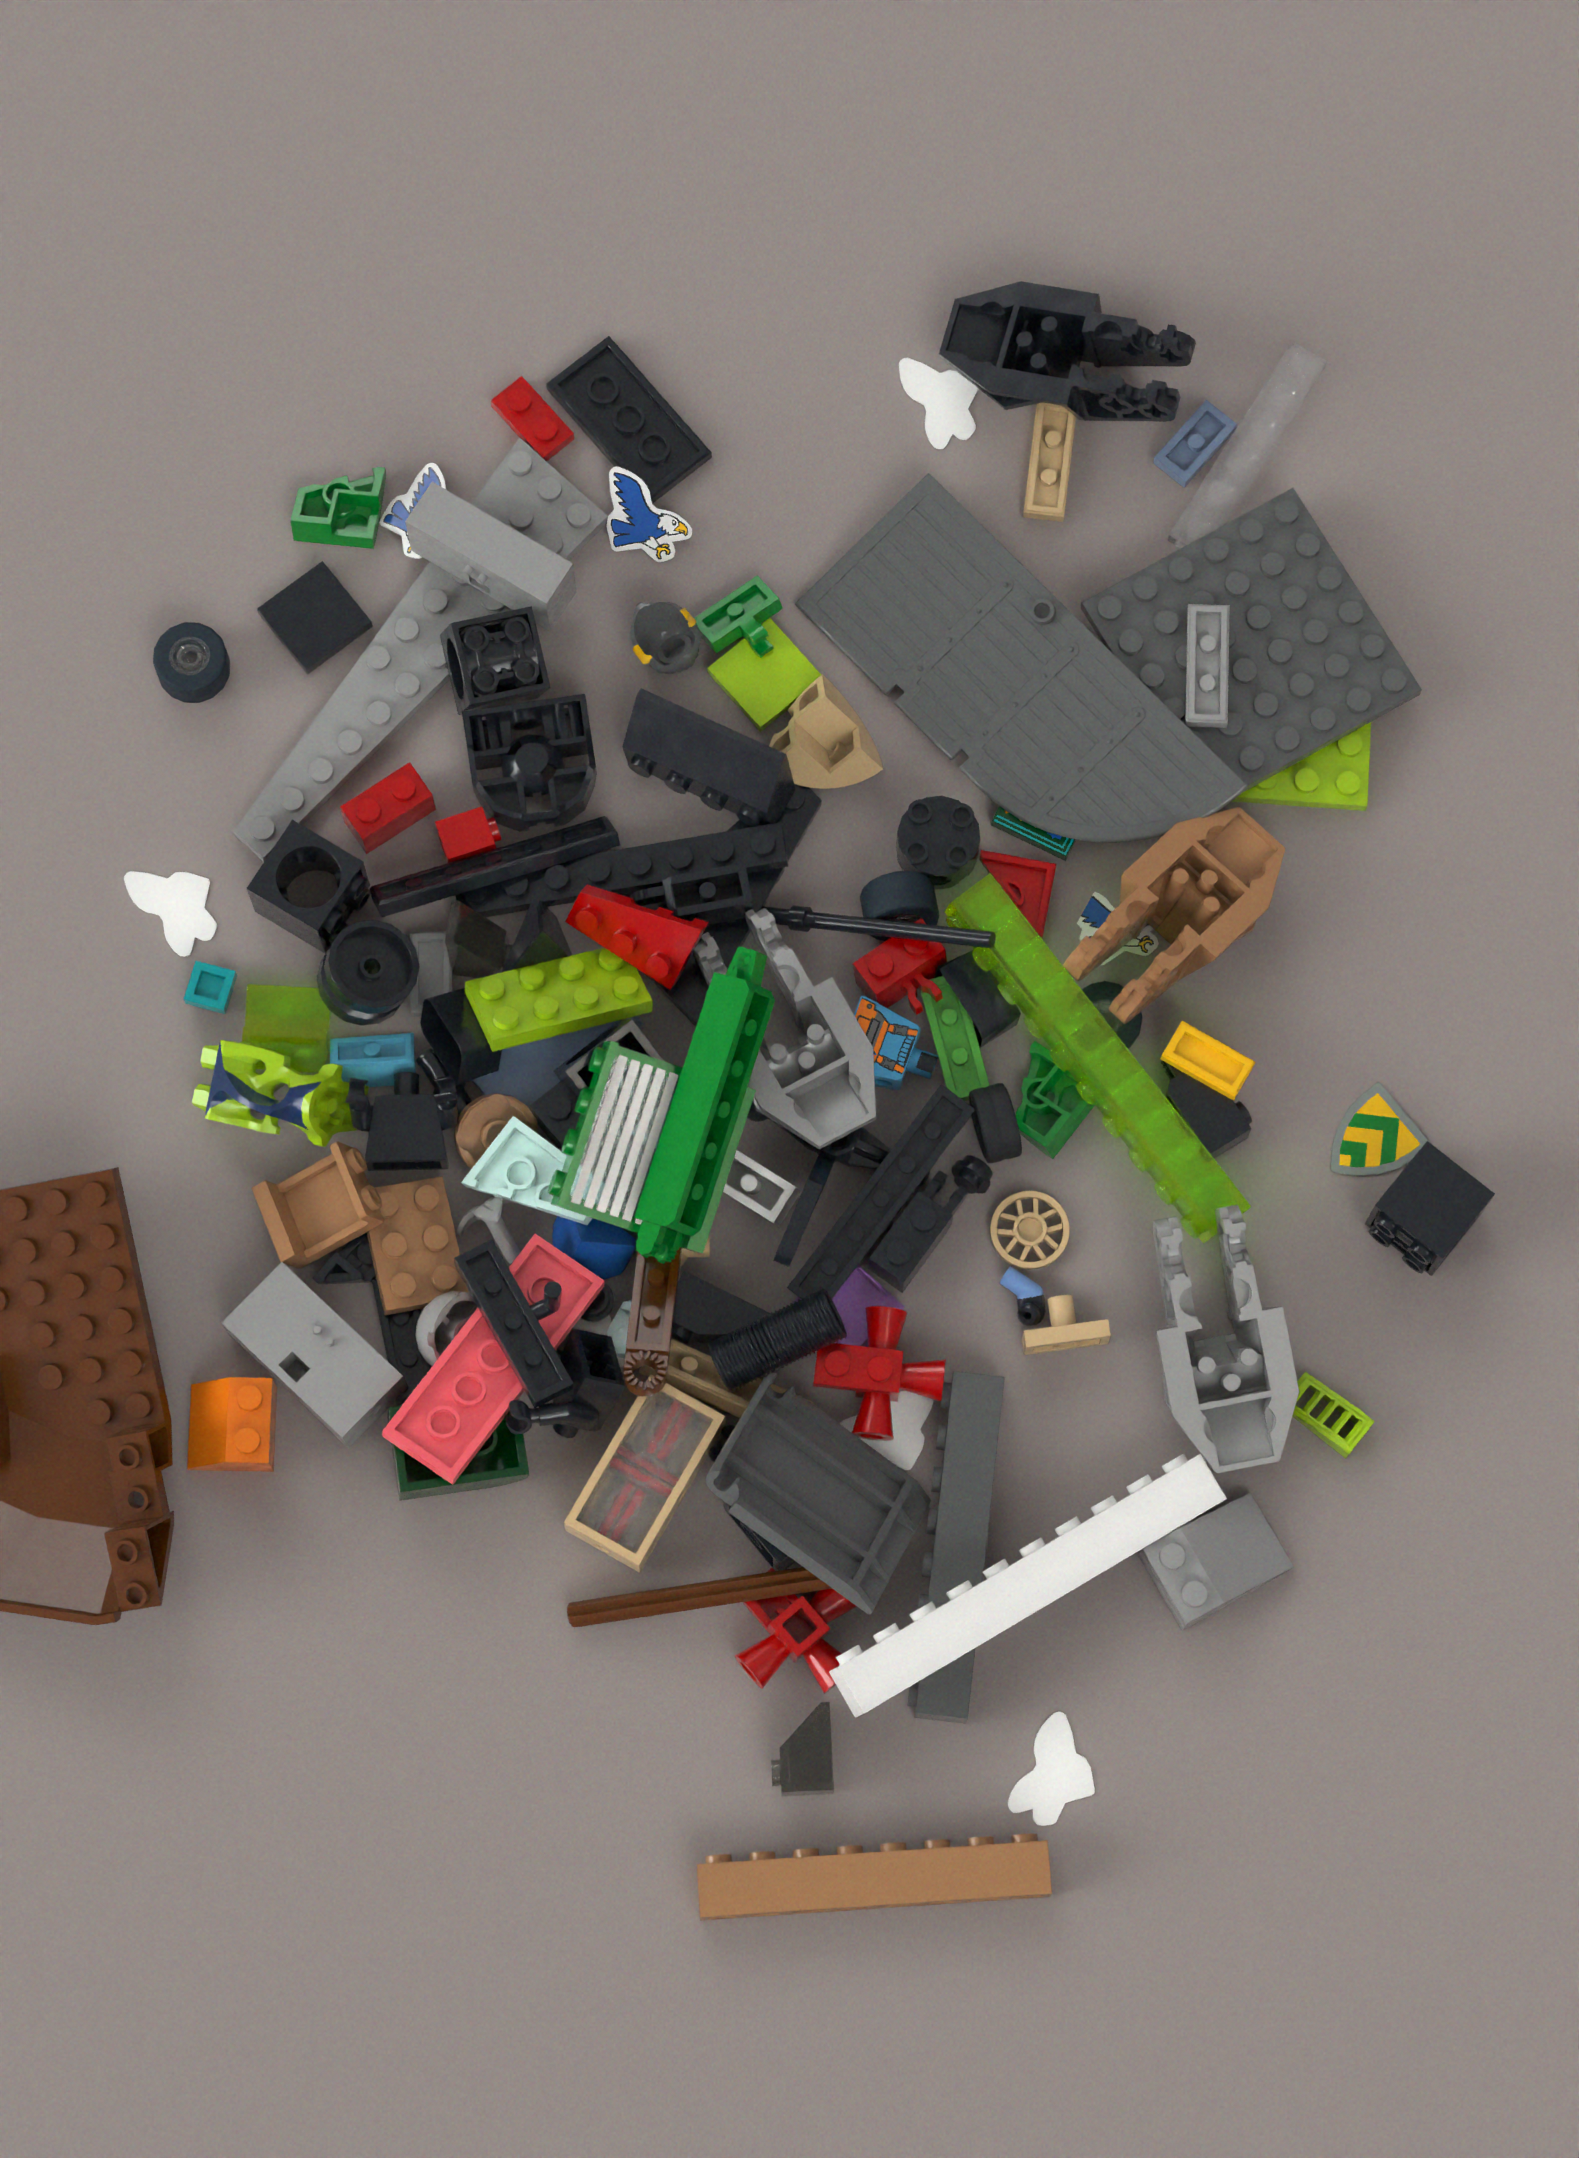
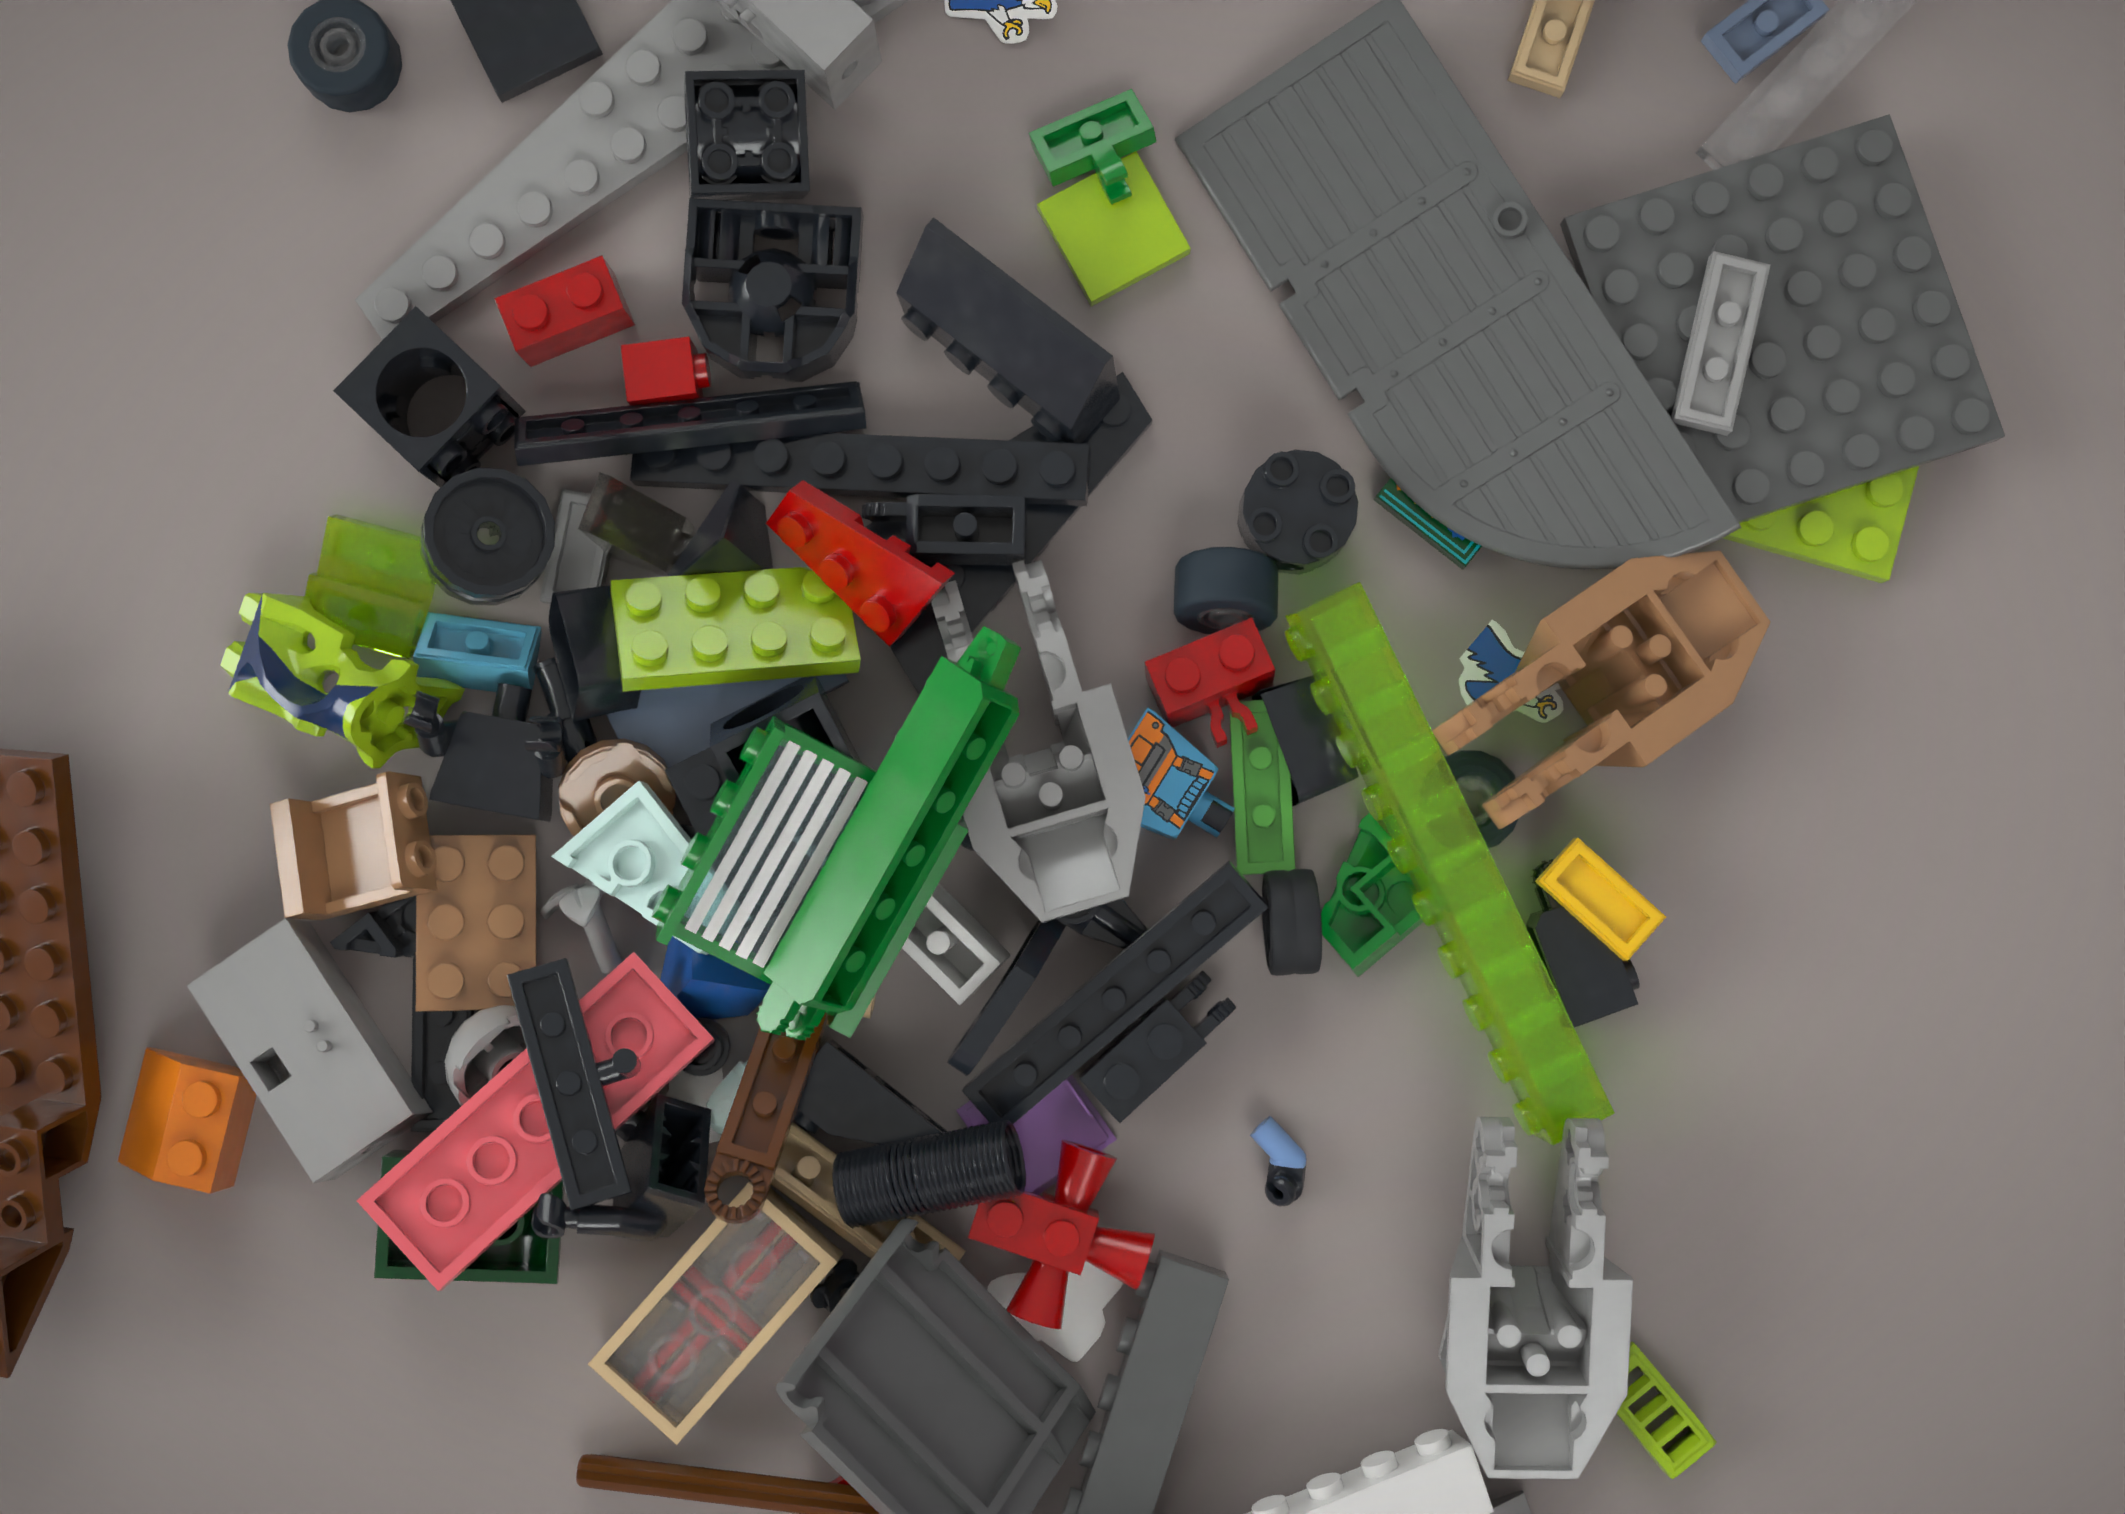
camera: 10 degrees right, 10 degrees up
(179, 904) = (266, 383): white sticker -> none
(210, 987) = (279, 510): teal plate -> none
(665, 636) = (988, 149): dark grey hair -> none
(803, 919) = (1094, 582): black bar -> none
(826, 740) = (1175, 339): tan brick -> none
(972, 1174) = (1245, 982): black plate -> none
(1025, 882) = (1402, 593): red tile -> none
(1029, 1230) = (1306, 1071): tan wheel -> none
(1064, 1330) = (1324, 1222): tan tile -> none
(1374, 1136) = (1798, 1036): sticker -> none
(1428, 1209) = (1857, 1169): black brick -> none

